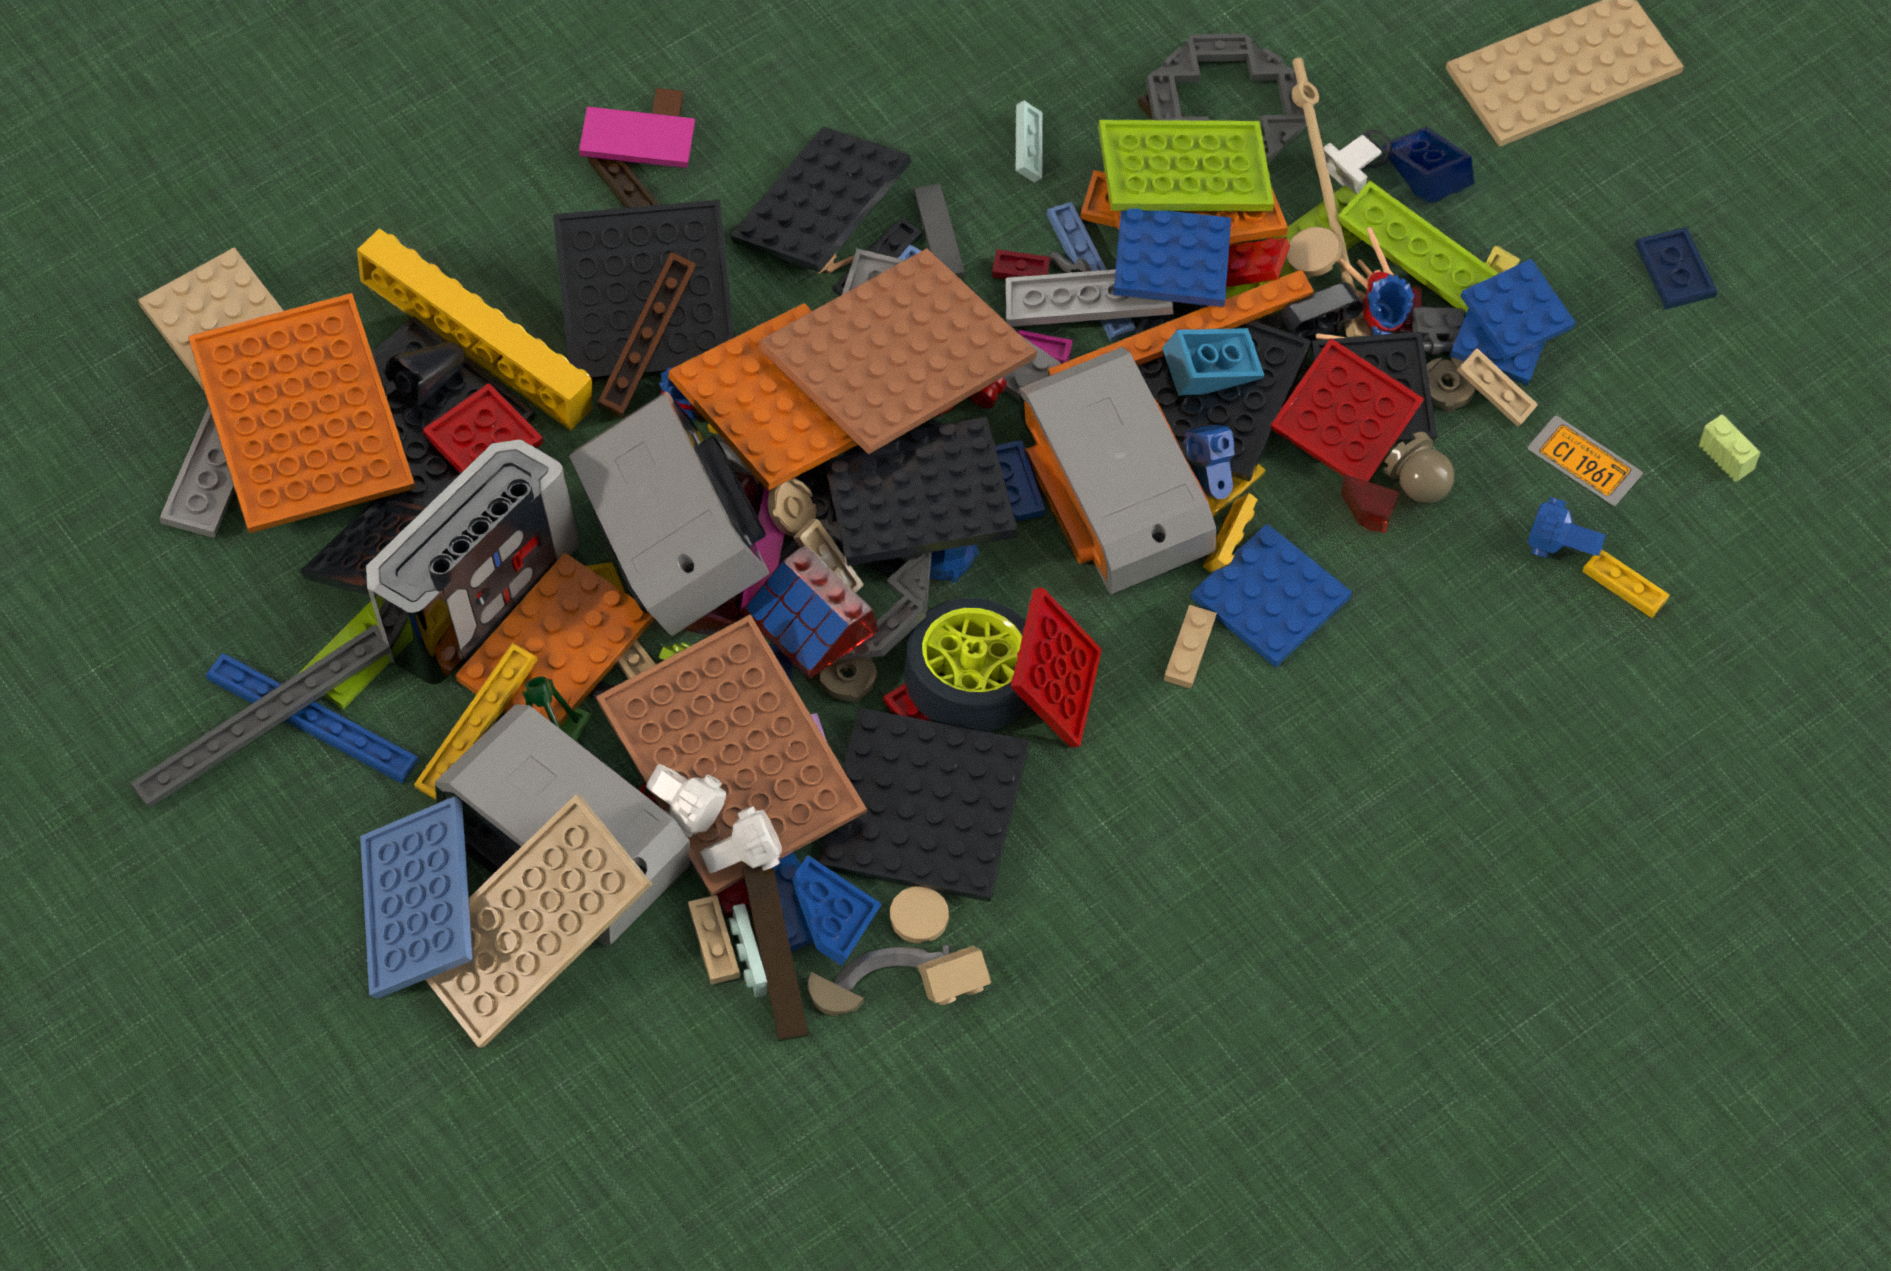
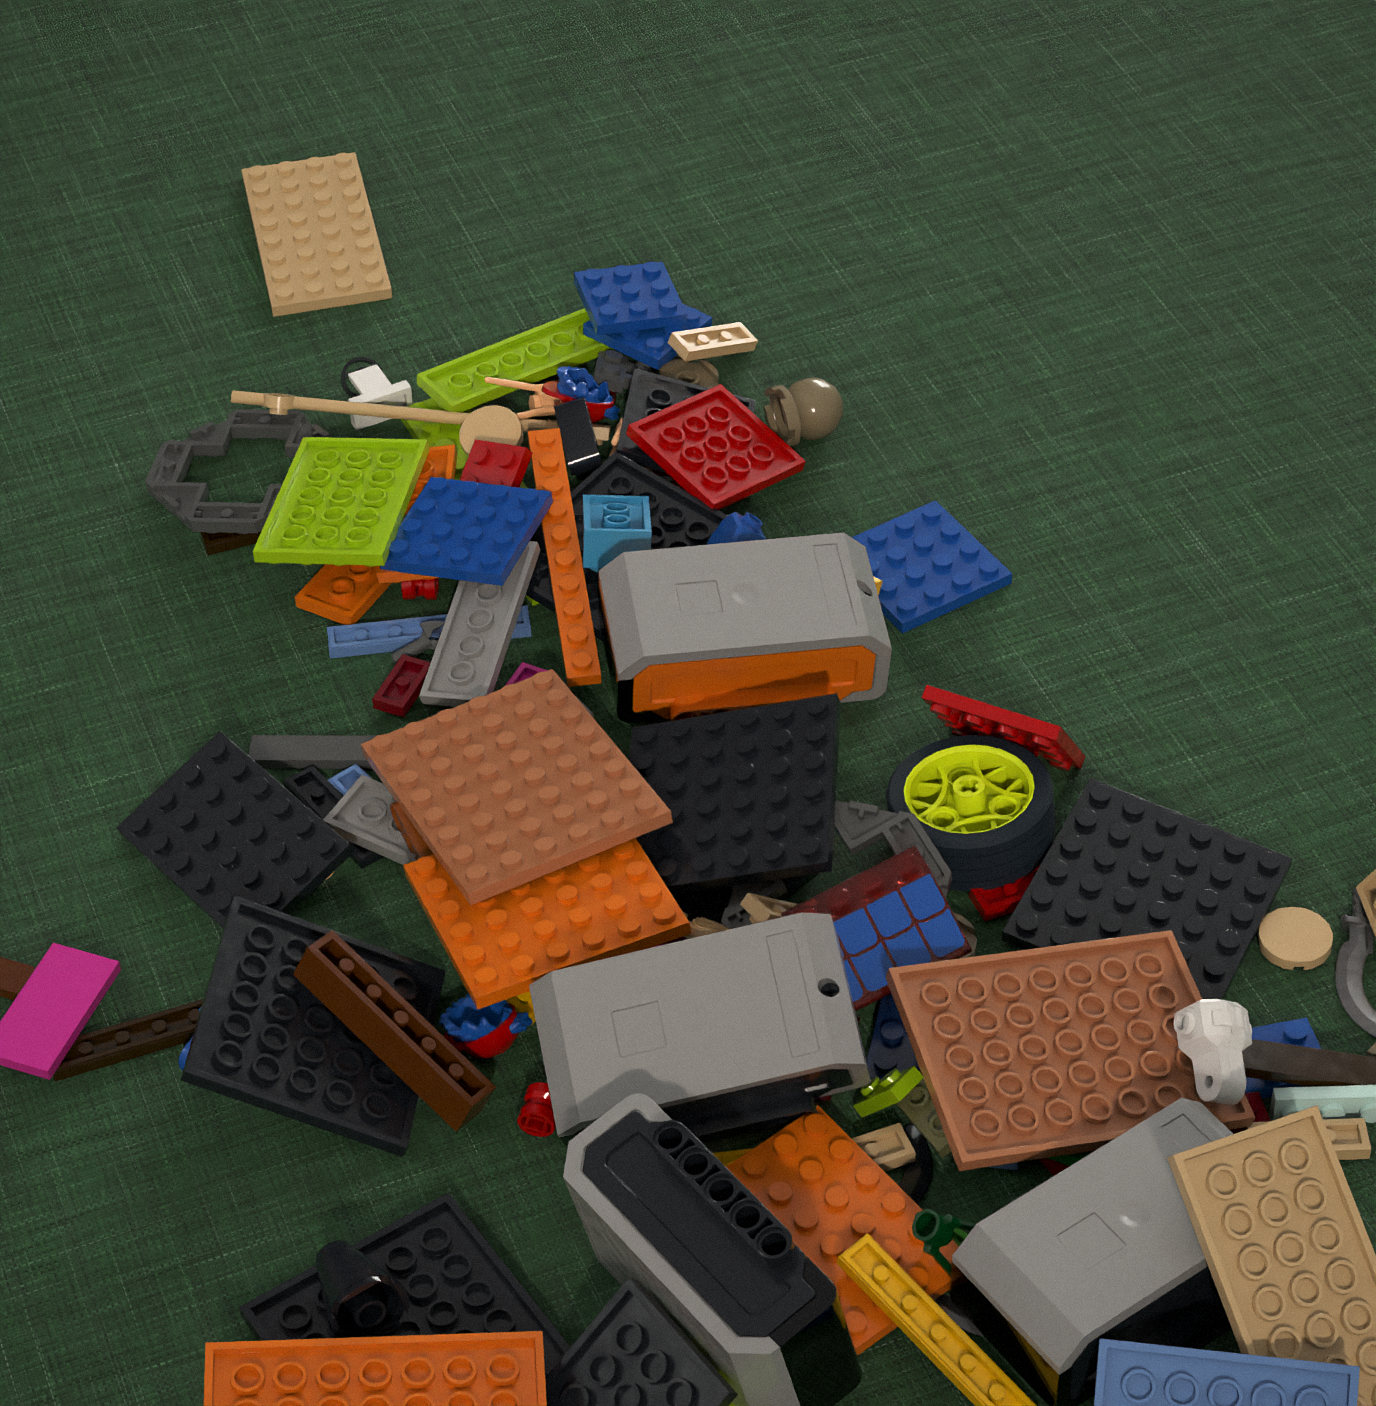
camera: 70 degrees left, 15 degrees down
(475, 425) = (478, 1249): red plate -> none
(481, 331) = (281, 1235): yellow brick -> none
(692, 802) = (1146, 1084): white piece -> none
(833, 909) = (1298, 1001): blue plate -> none
(1028, 141) = (226, 648): light aqua plate -> none
(1190, 646) = (971, 641): tan plate -> none
(1369, 503) = (827, 464): clear red slope -> none
(1431, 164) = (402, 339): clear blue slope -> none
(1501, 260) = (550, 311): light yellow plate -> none
(1555, 529) = (907, 332): blue piece -> none
(1585, 460) = (810, 313): sticker -> none
(1626, 583) = (971, 311): yellow tile -> none
(1676, 268) = (598, 207): dark blue tile -> none
(1729, 448) = (836, 207): yellowish green brick -> none

